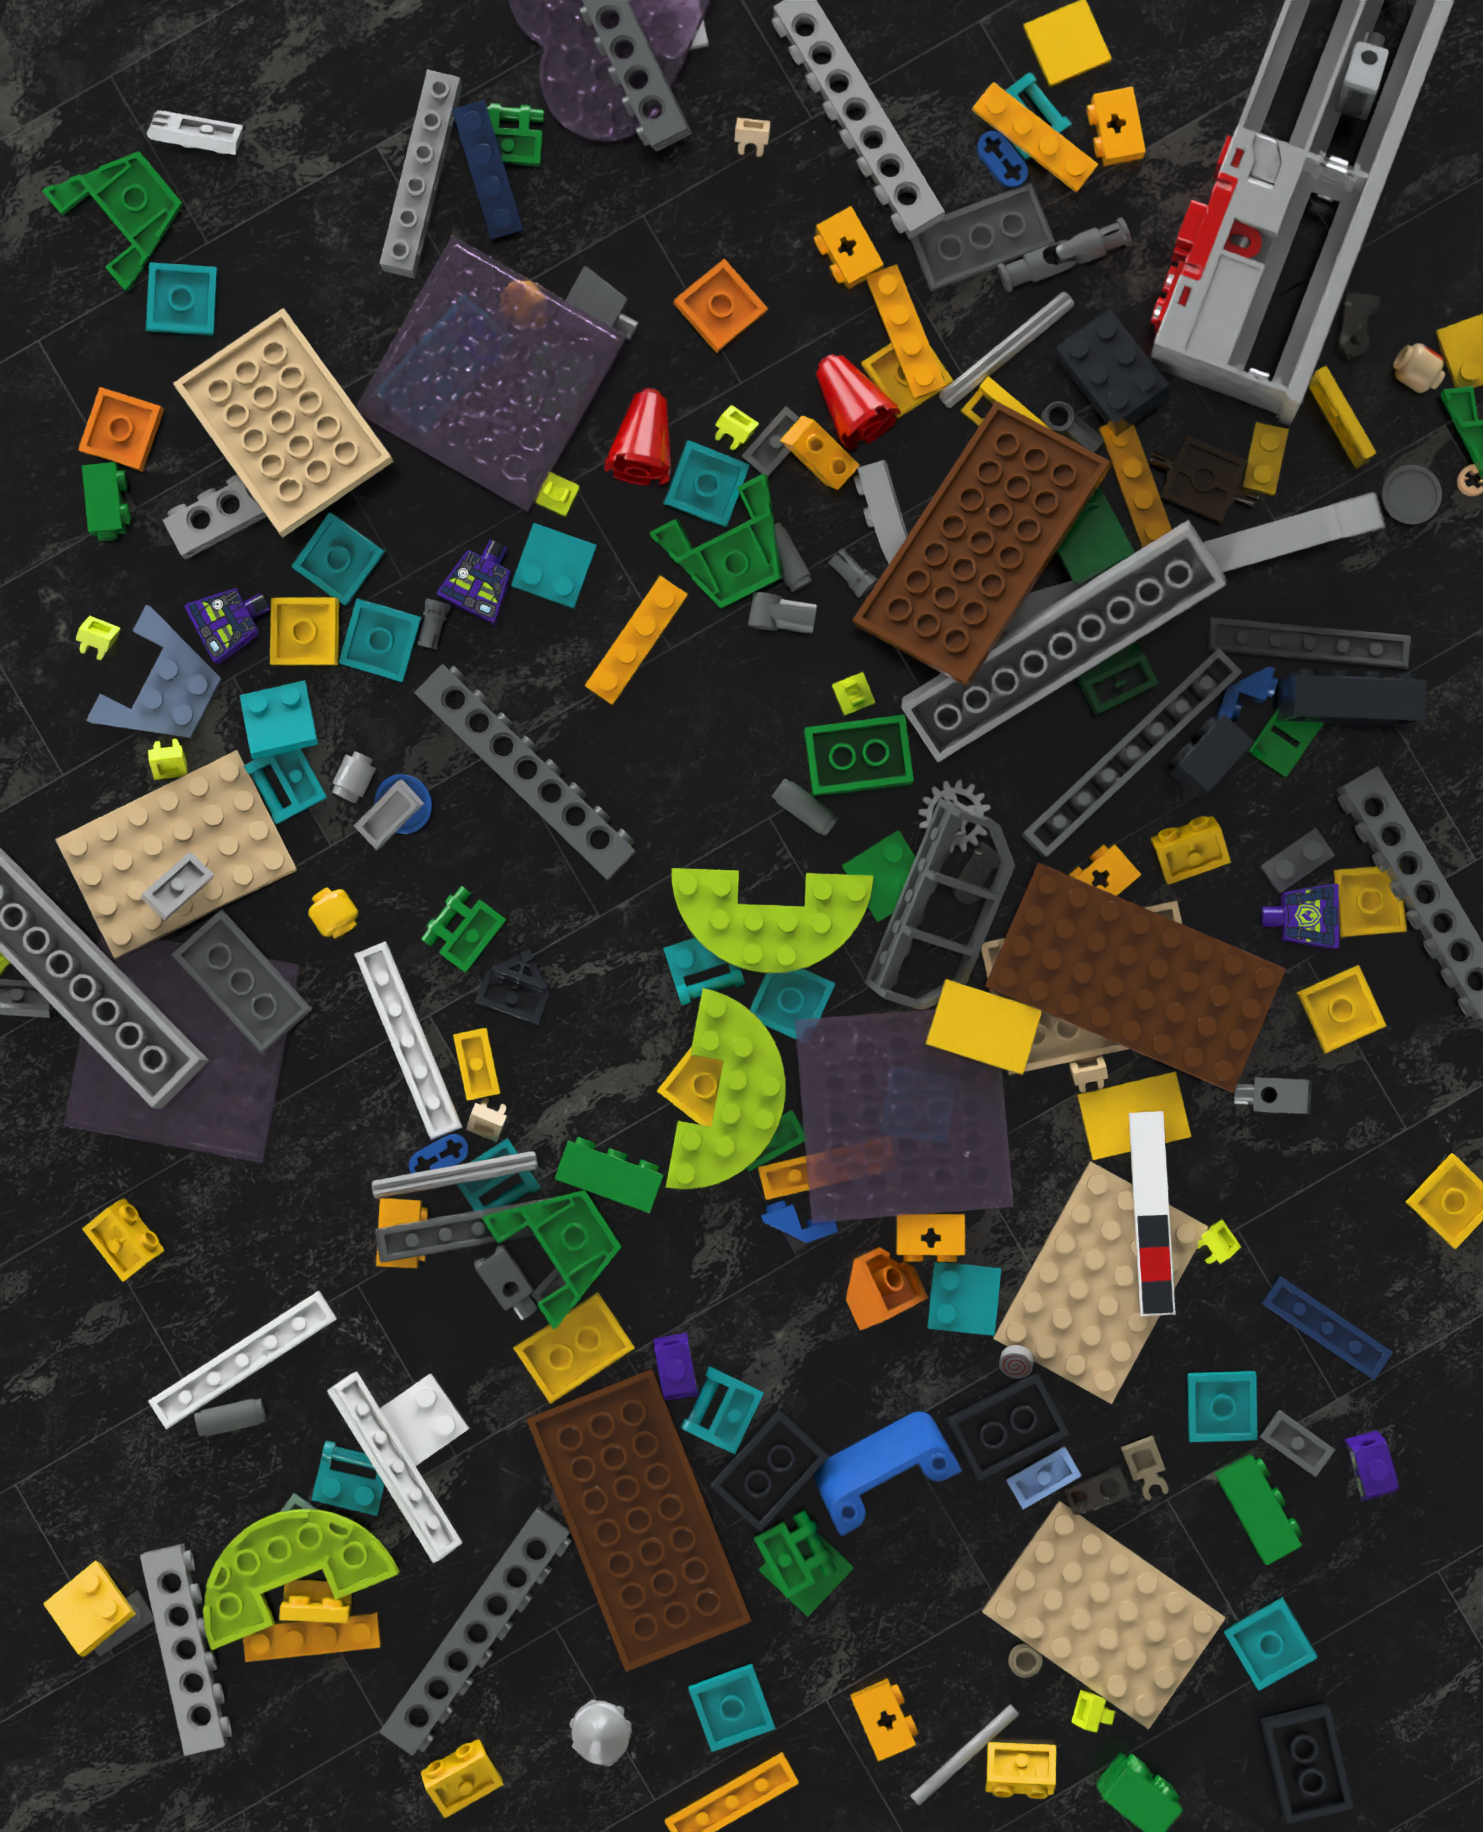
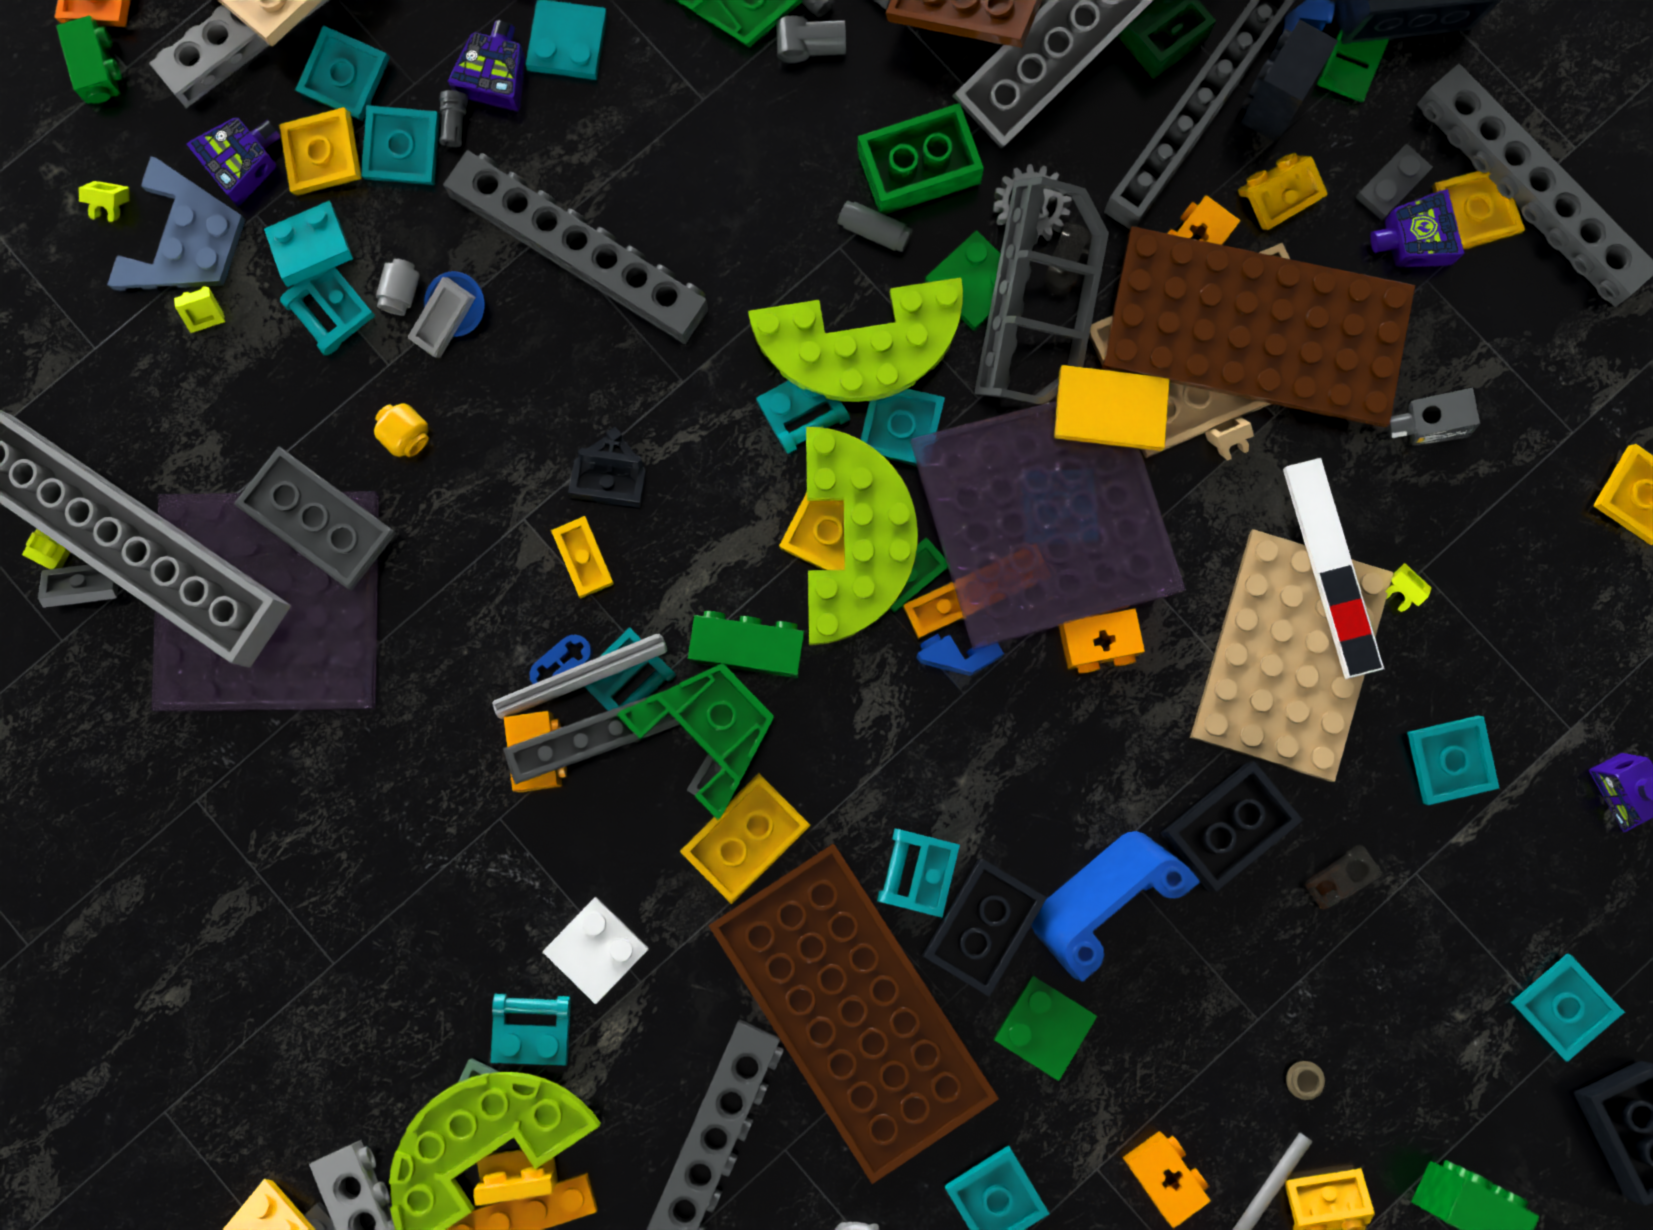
camera: 10 degrees left, 5 degrees down
(123, 1239) = (236, 818): yellow bracket -> none
(177, 886) = (223, 426): light grey hinge -> none
(203, 813) = (223, 403): tan plate -> none
(230, 1417) = (385, 989): dark grey piece -> none
(242, 1360) = (388, 924): white tile -> none
(394, 1467) = (574, 1007): white tile -> none
(408, 1040) = (506, 548): white tile -> none
(471, 936) = (551, 425): green plate -> none
(487, 1121) = (604, 614): tan tile -> none
(497, 1268) = (644, 766): dark grey torso -> none
(636, 640) = (666, 96): light orange plate -> none
(675, 1367) = (860, 836): dark purple torso -> none
(785, 1559) = (1023, 1022): green plate -> none
(853, 694) = (900, 104): neon yellow tile -> none
(882, 1288) = (1062, 706): orange slope -> none
(964, 1298) = (1151, 701): teal plate -> none
(1016, 1362) = (1223, 756): light grey tile -> none
(1043, 1477) = (1280, 875): light blue plate -> none
(1091, 1711) = (1391, 1123): neon yellow tile -> none
(1103, 1614) = (1378, 1012): tan plate -> none
(1108, 1109) = (1260, 478): yellow tile -> none
(1145, 1463) = (1384, 838): dark tan plate -> none
(1259, 1508) = (1520, 862): green brick -> none
(1297, 1443) = (1543, 783): dark grey plate -> none
(1326, 1328) = (1544, 654): dark blue plate -> none
(1341, 1009) = (1476, 322): yellow tile -> none

